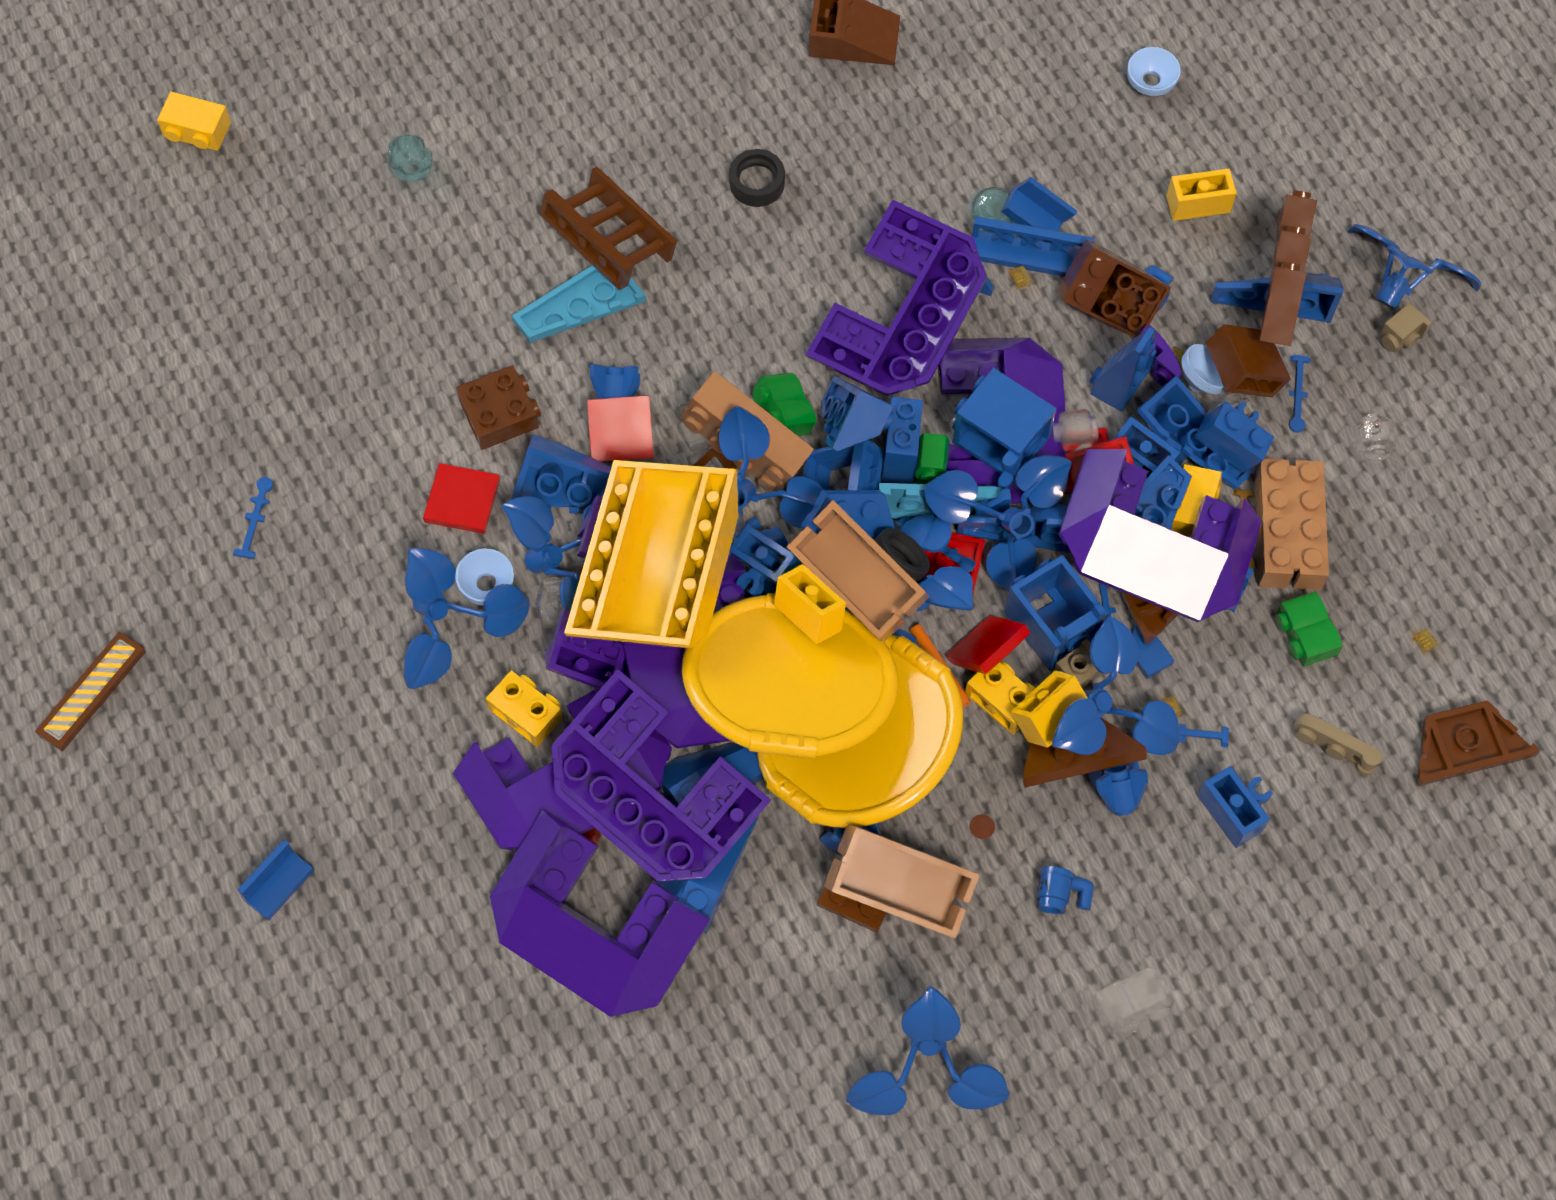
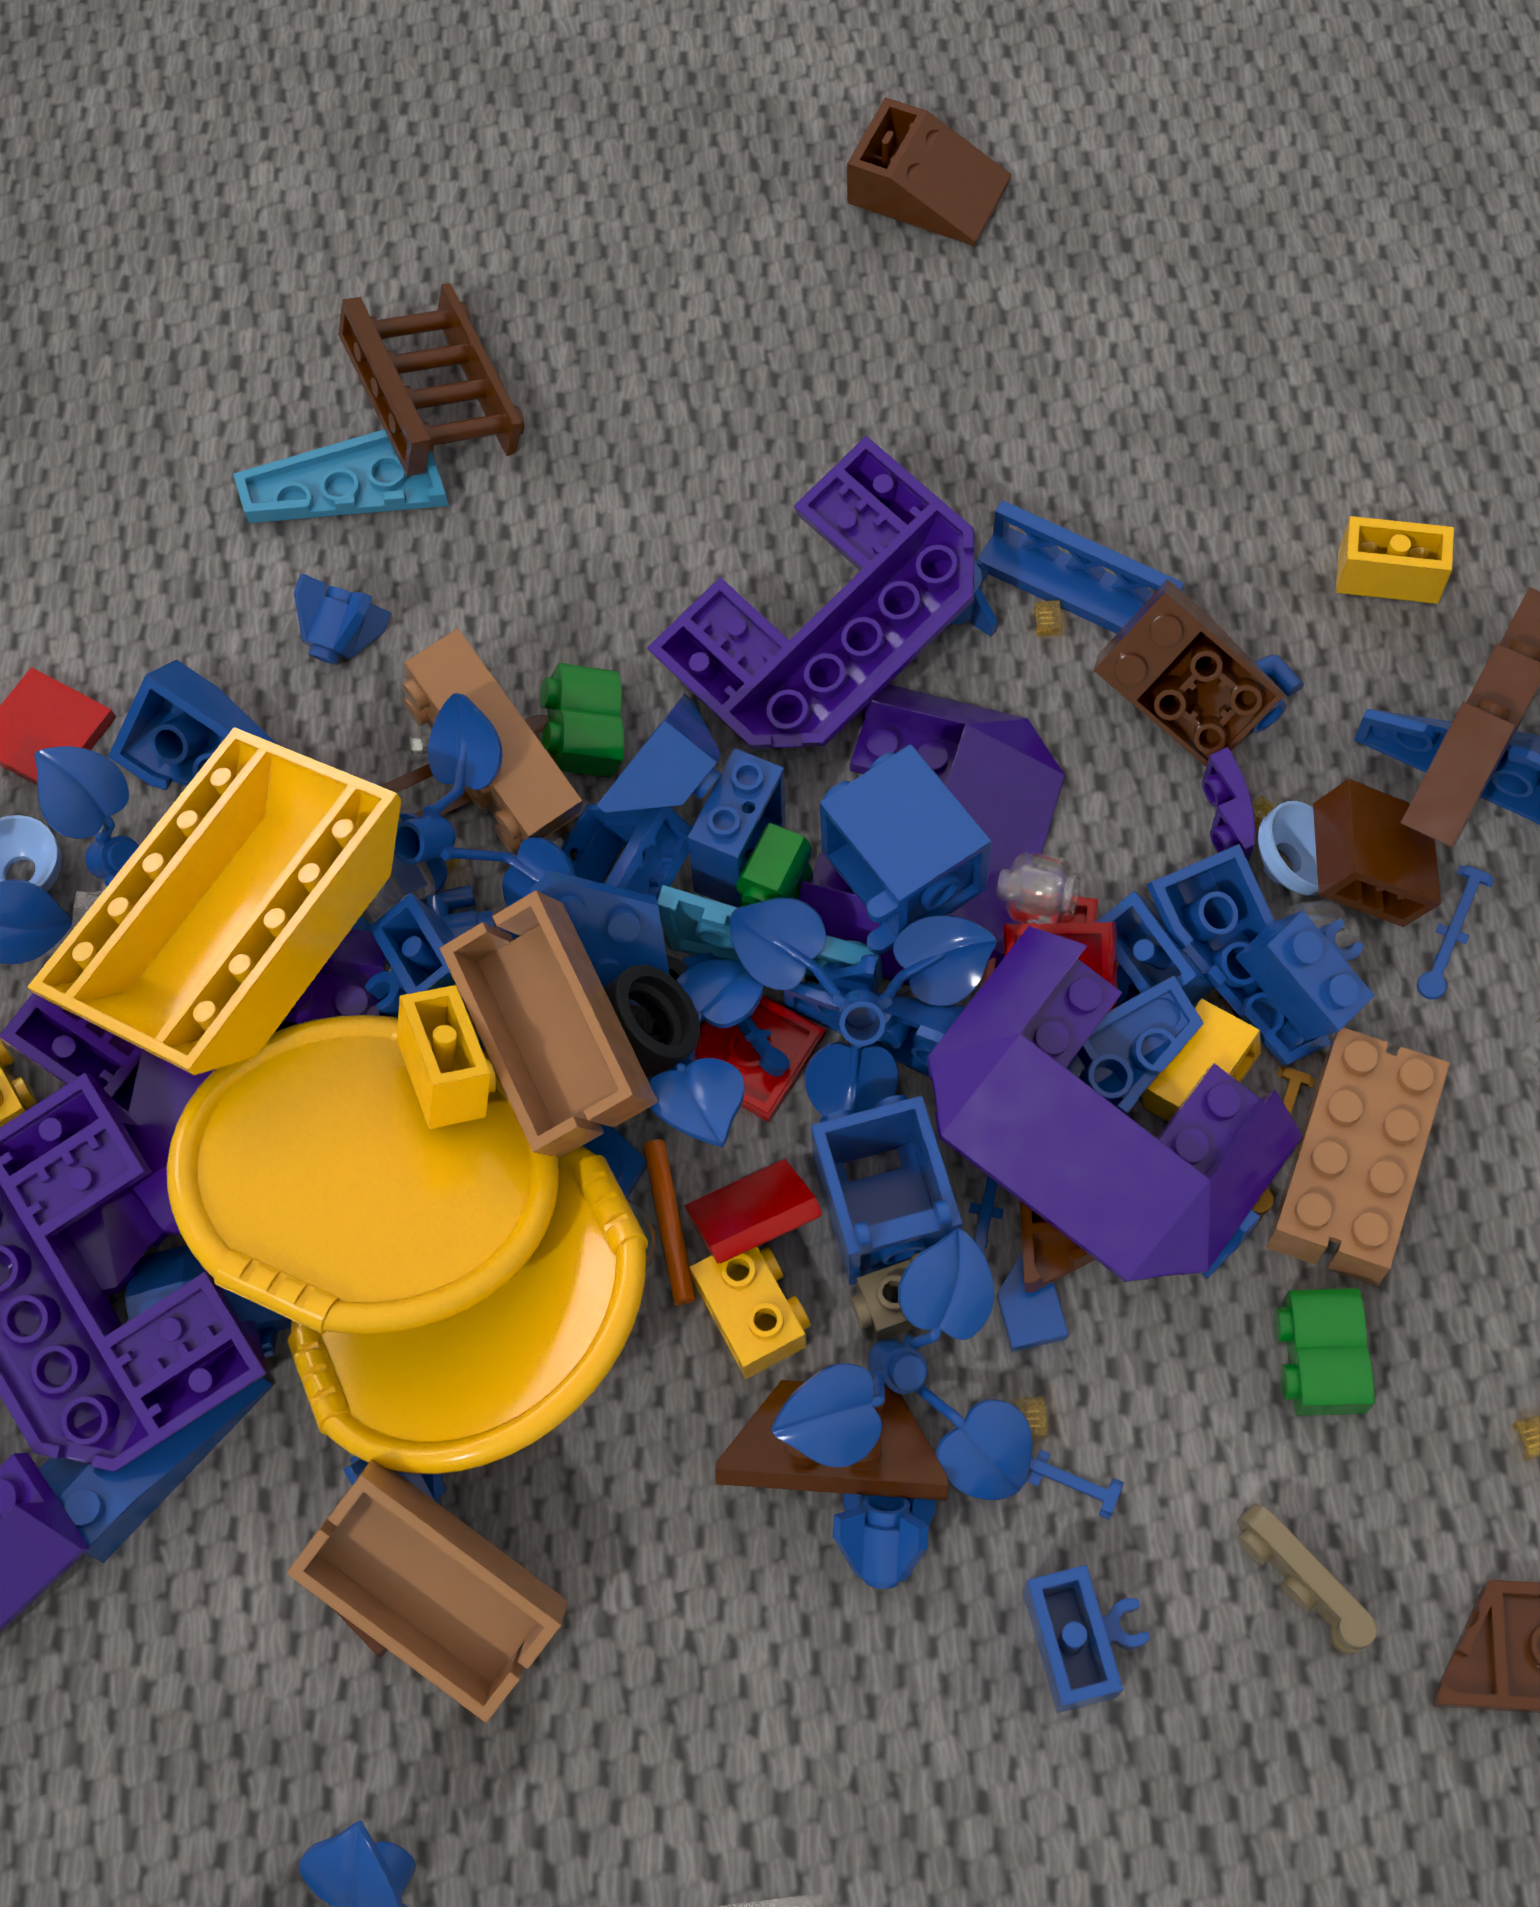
camera: 25 degrees right, 0 degrees up
(409, 151) = (186, 199): clear light blue hair -> none
(498, 407) = (152, 605): reddish brown brick -> none
(620, 428) = (316, 687): tile -> none
(762, 196) = (699, 390): black tyre -> none
(982, 826) = (630, 1525): copper piece -> none
(989, 204) = (1048, 493): clear light blue hair -> none
(1037, 206) = (1111, 512): blue panel -> none
(1045, 705) = (798, 1347): yellow brick -> none
(1056, 888) = (706, 1685): blue piece -> none
(1125, 371) = (1160, 814): blue wedge -> none
(1153, 61) = (1387, 333): light blue piece -> none

